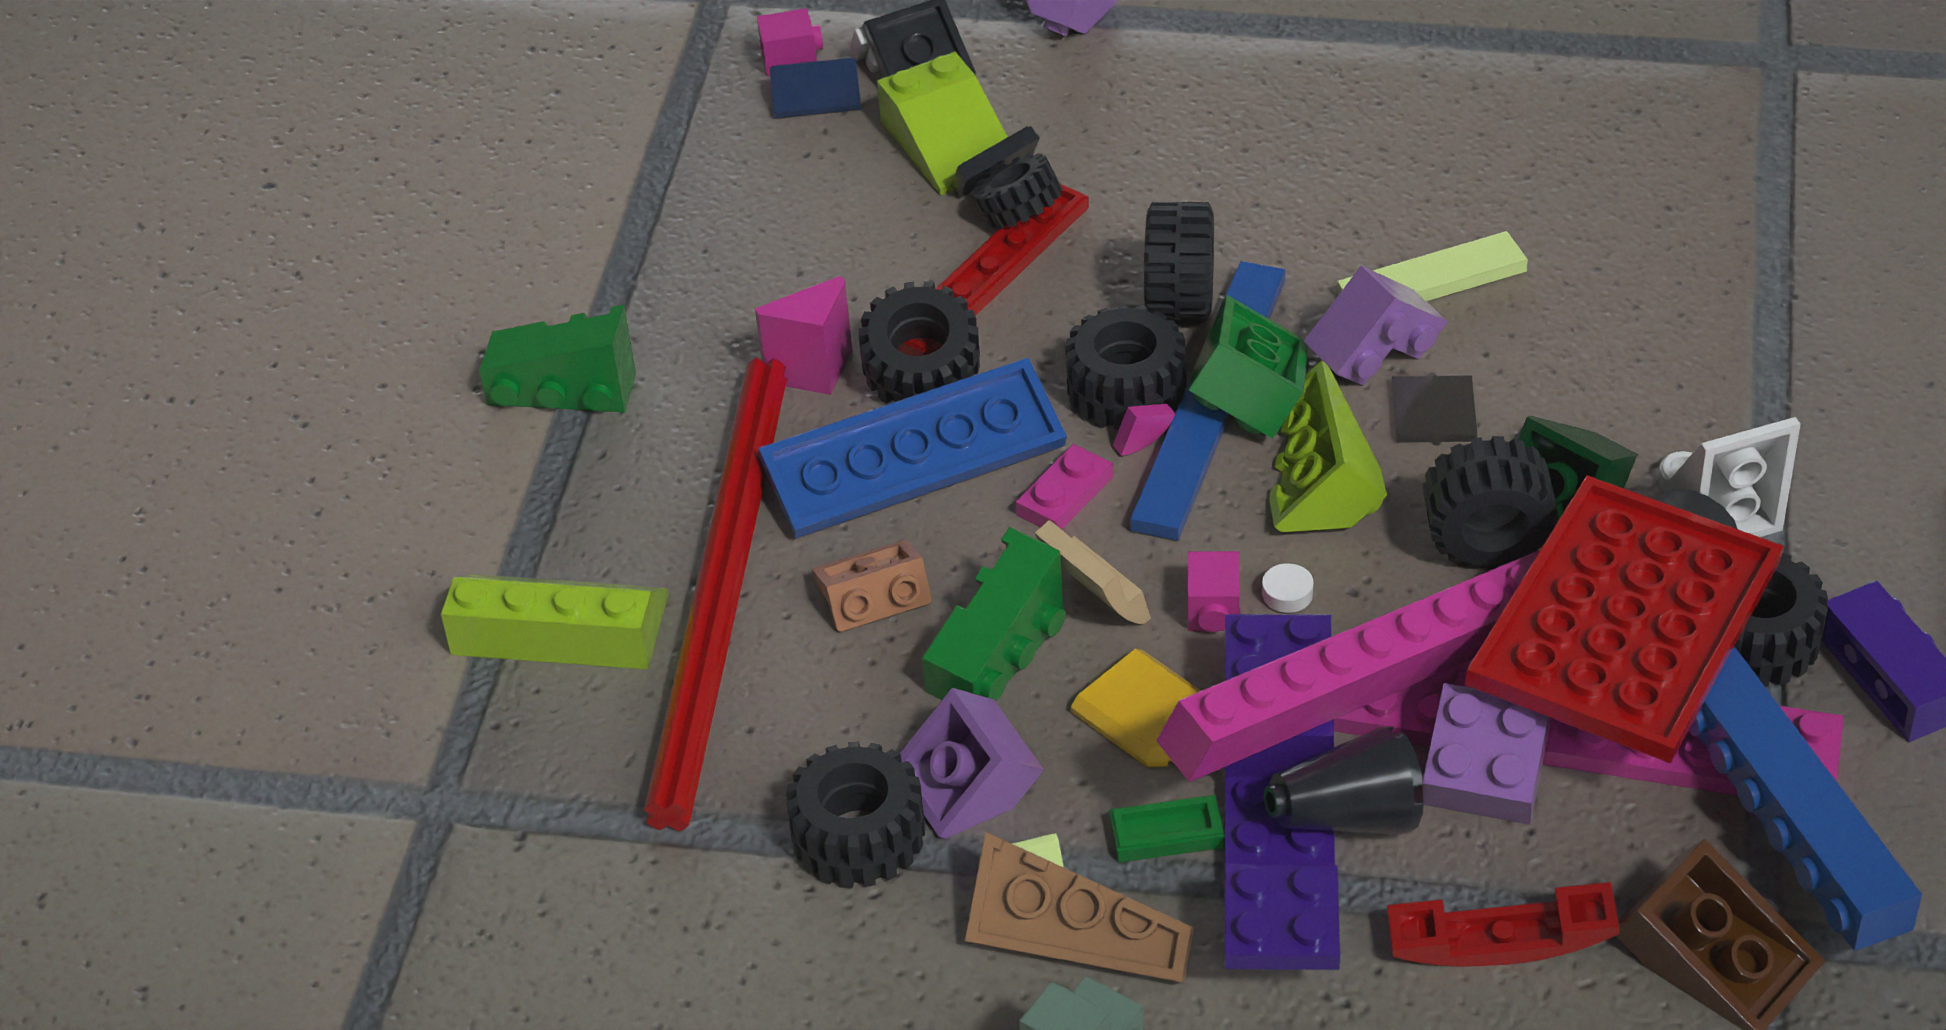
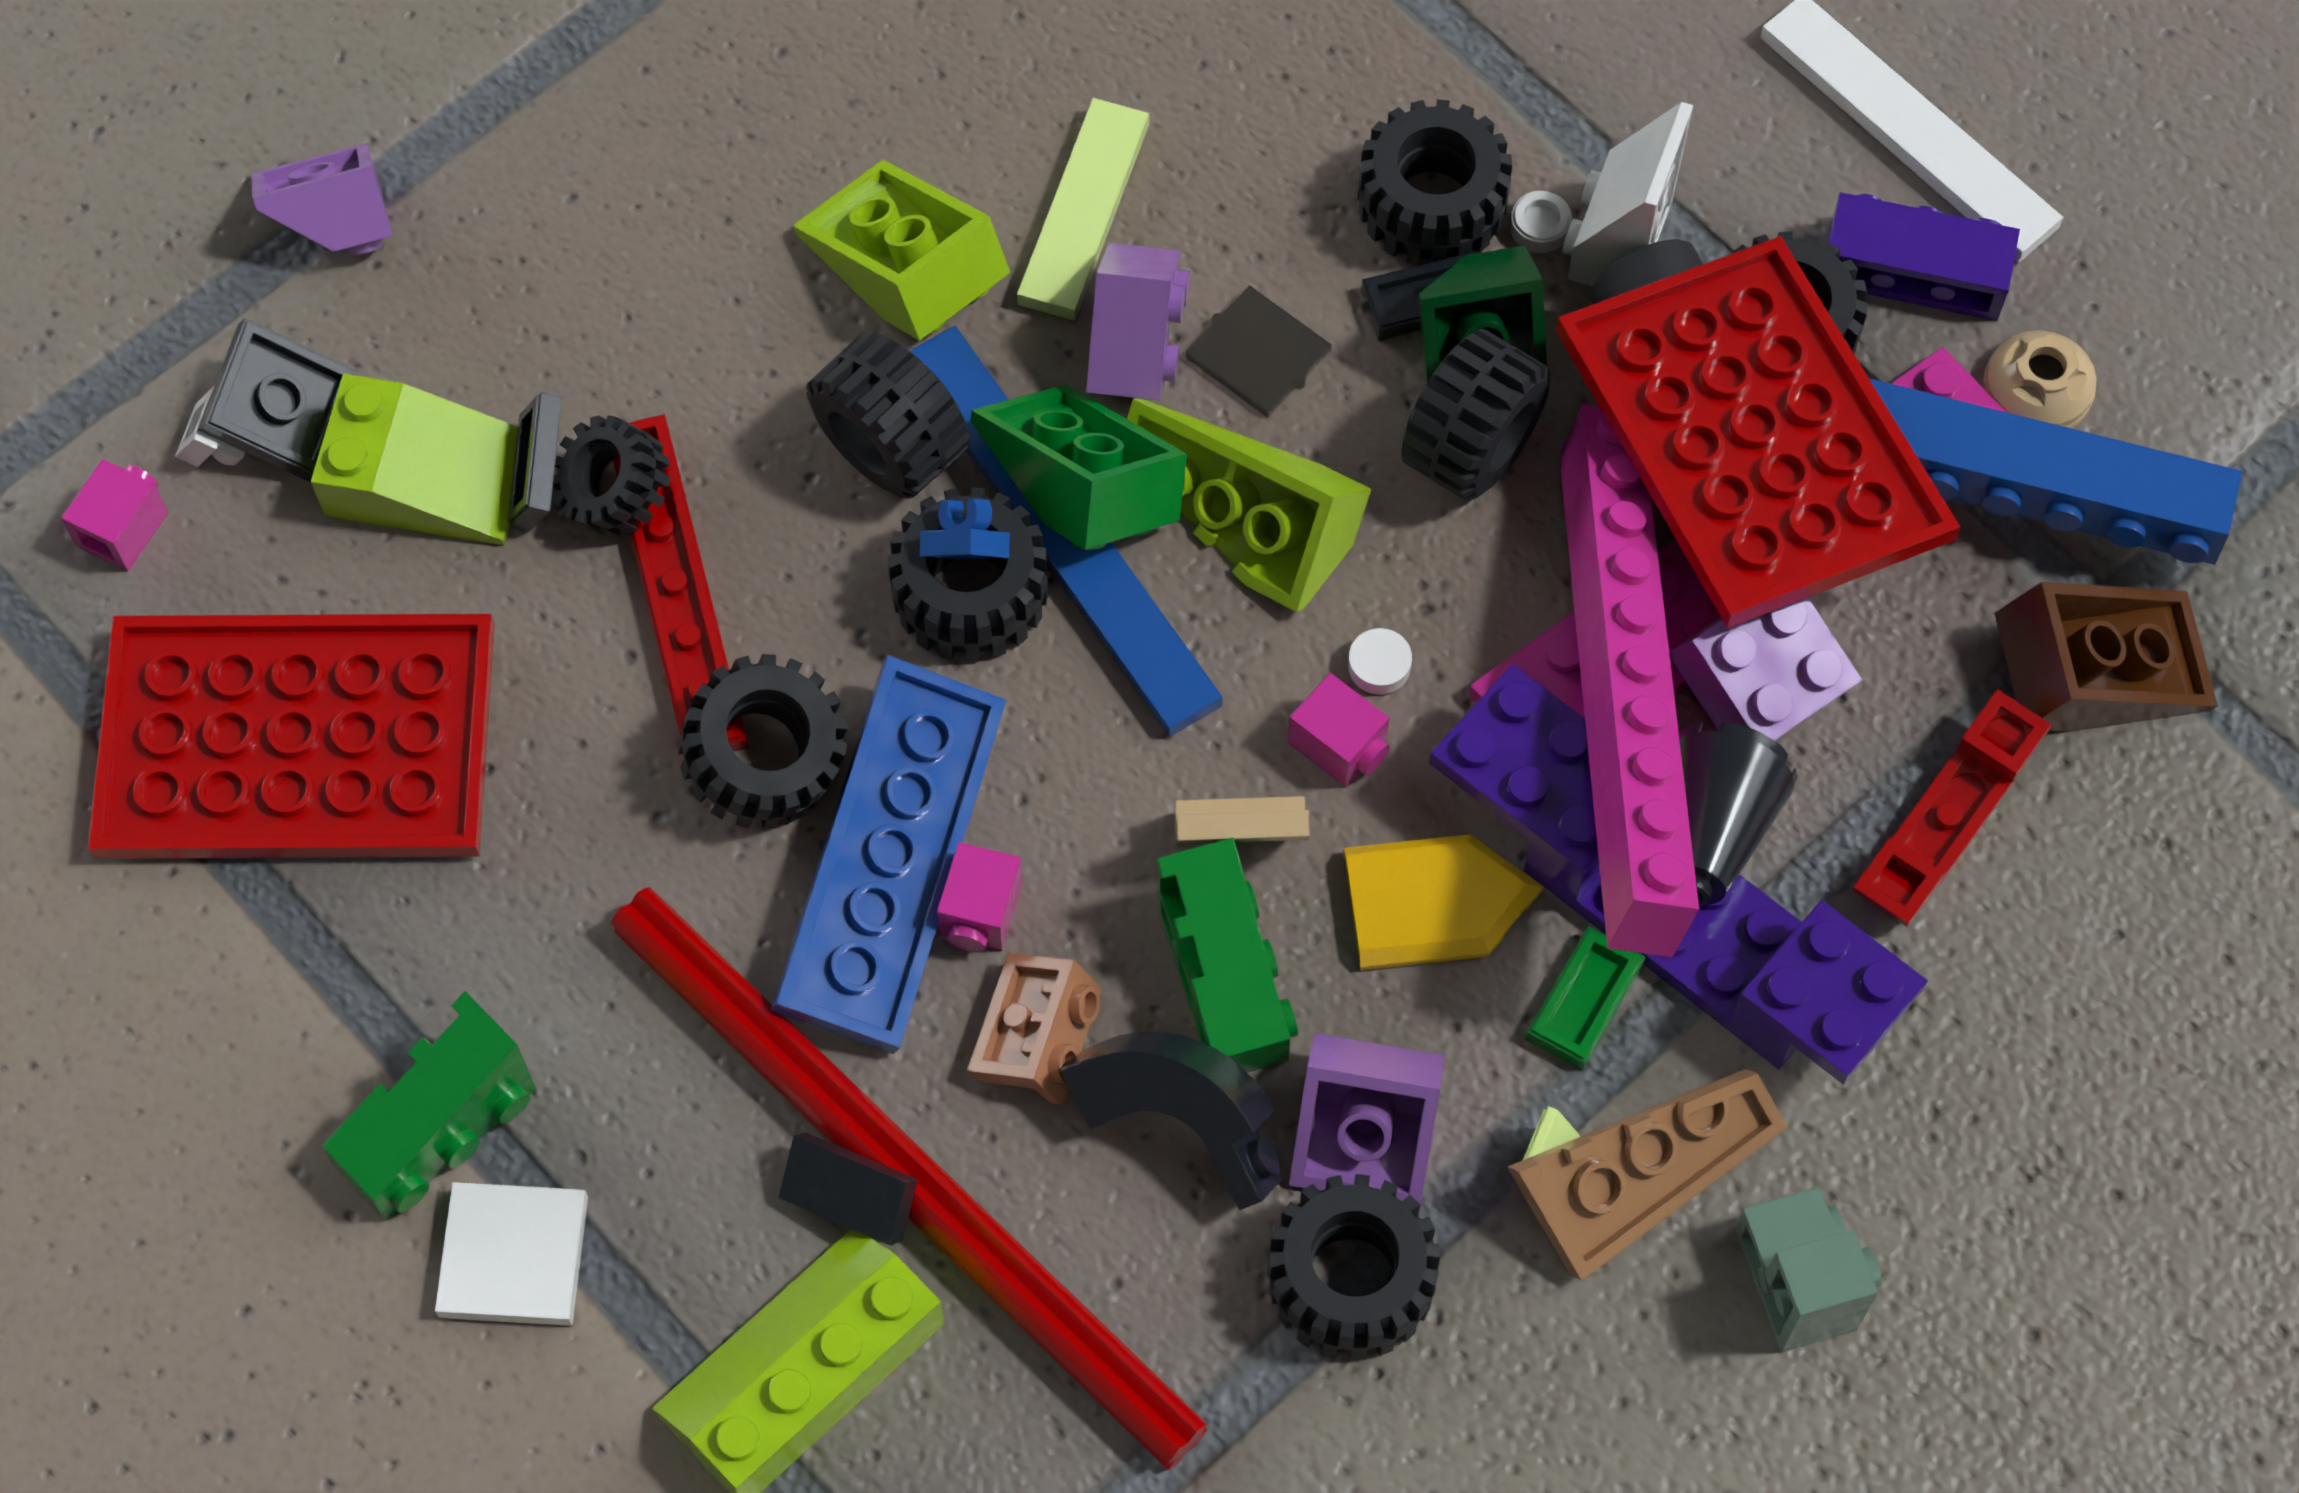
camera: 55 degrees left, 20 degrees up
(512, 460) = (511, 1254): none -> white tile
(681, 560) = (848, 1188): none -> black tile
(733, 186) = (293, 736): none -> red plate
(808, 335) = (650, 836): dark pink slope -> none
(815, 87) = (218, 543): dark blue slope -> none
(891, 666) = (1187, 1082): none -> black arch
(926, 504) = (979, 898): none -> dark pink brick
(1065, 488) = (1063, 754): dark pink plate -> none
(1131, 328) = (967, 537): none -> blue tile
(1142, 427) = (1054, 622): dark pink tile -> none
(1306, 221) = (906, 247): none -> lime slope
(1639, 396) = (1444, 143): none -> black tyre
(1886, 802) = (2024, 394): none -> tan piece

